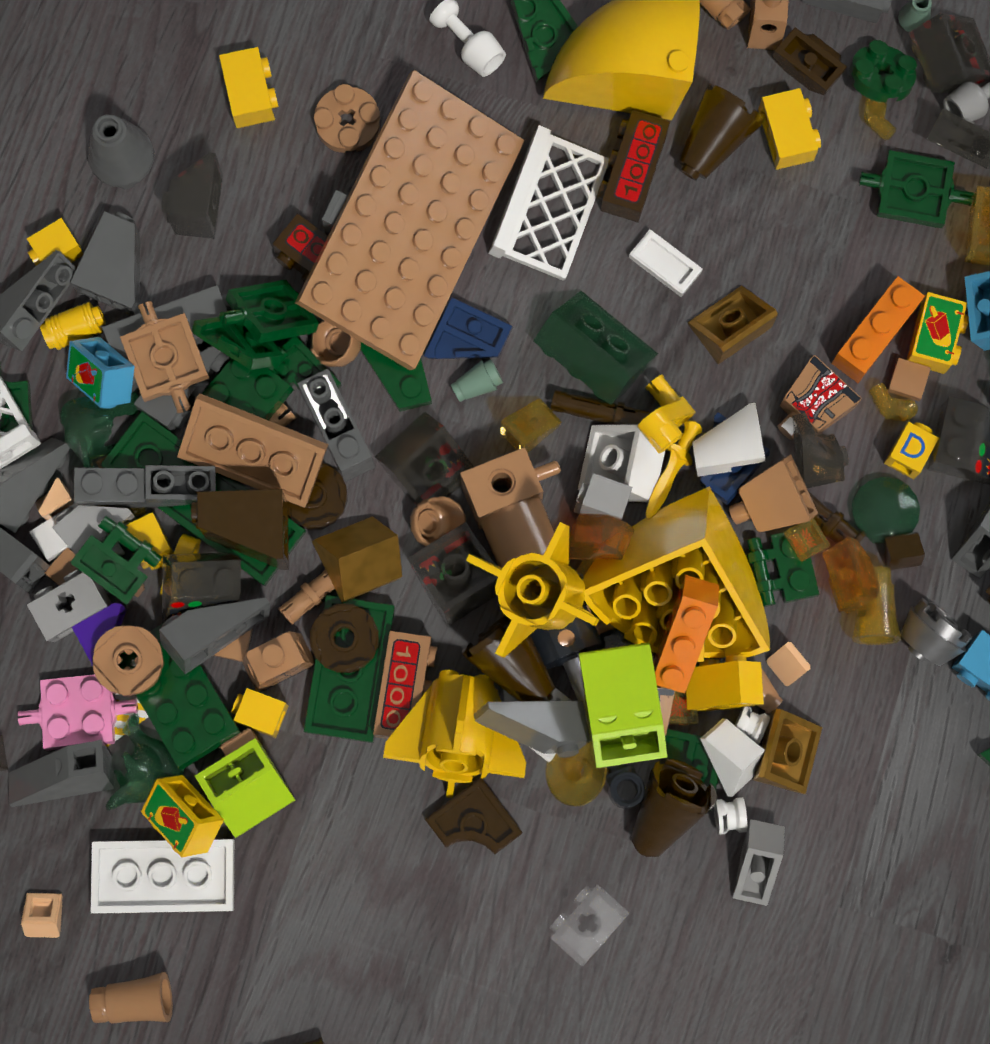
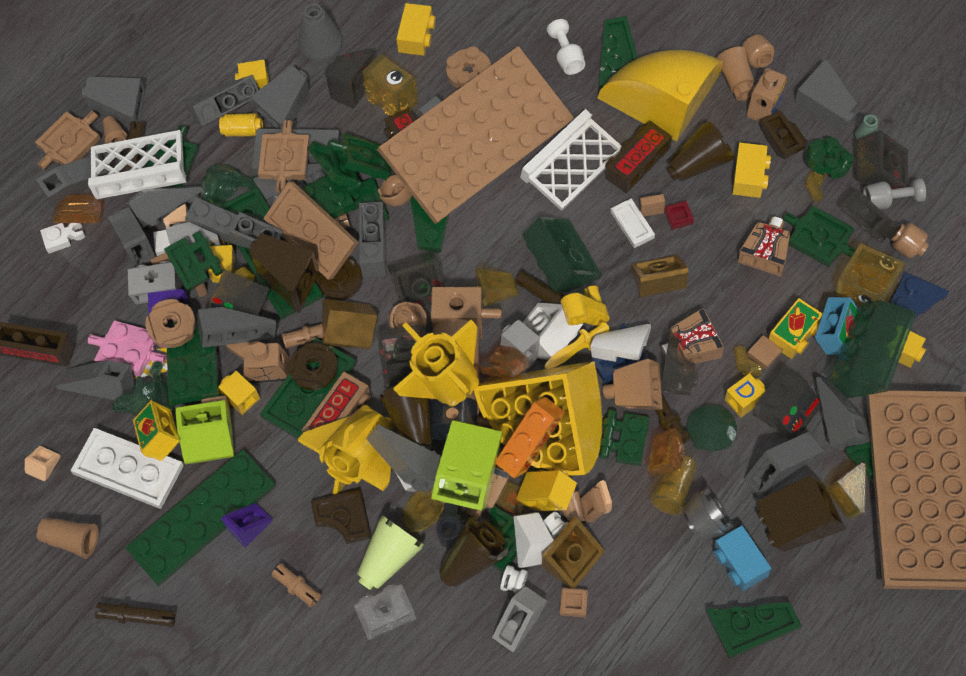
camera: 30 degrees right, 15 degrees down
(100, 372) = (241, 152): dark azure brick -> none
(258, 194) = (389, 86): none -> clear yellow brick
(291, 900) = (198, 517): none -> dark green plate
(358, 882) = (246, 523): none -> dark purple slope
(459, 937) = (296, 585): none -> medium nougat pin
(467, 334) = (482, 217): dark blue wing -> none
(477, 381) = (476, 247): sand green cone -> none
(558, 849) = (386, 554): none -> yellowish green cone
(683, 229) = (652, 205): none -> medium nougat tile
(720, 228) = (678, 215): none -> dark red tile
(785, 676) = (593, 505): none -> medium nougat tile
(807, 539) = (647, 422): clear yellow tile -> none
(813, 810) = (573, 602): none -> medium nougat tile
(855, 232) = (766, 247): none -> torso
(878, 329) = (755, 311): orange brick -> none
(903, 550) = (711, 458): dark brown slope -> none

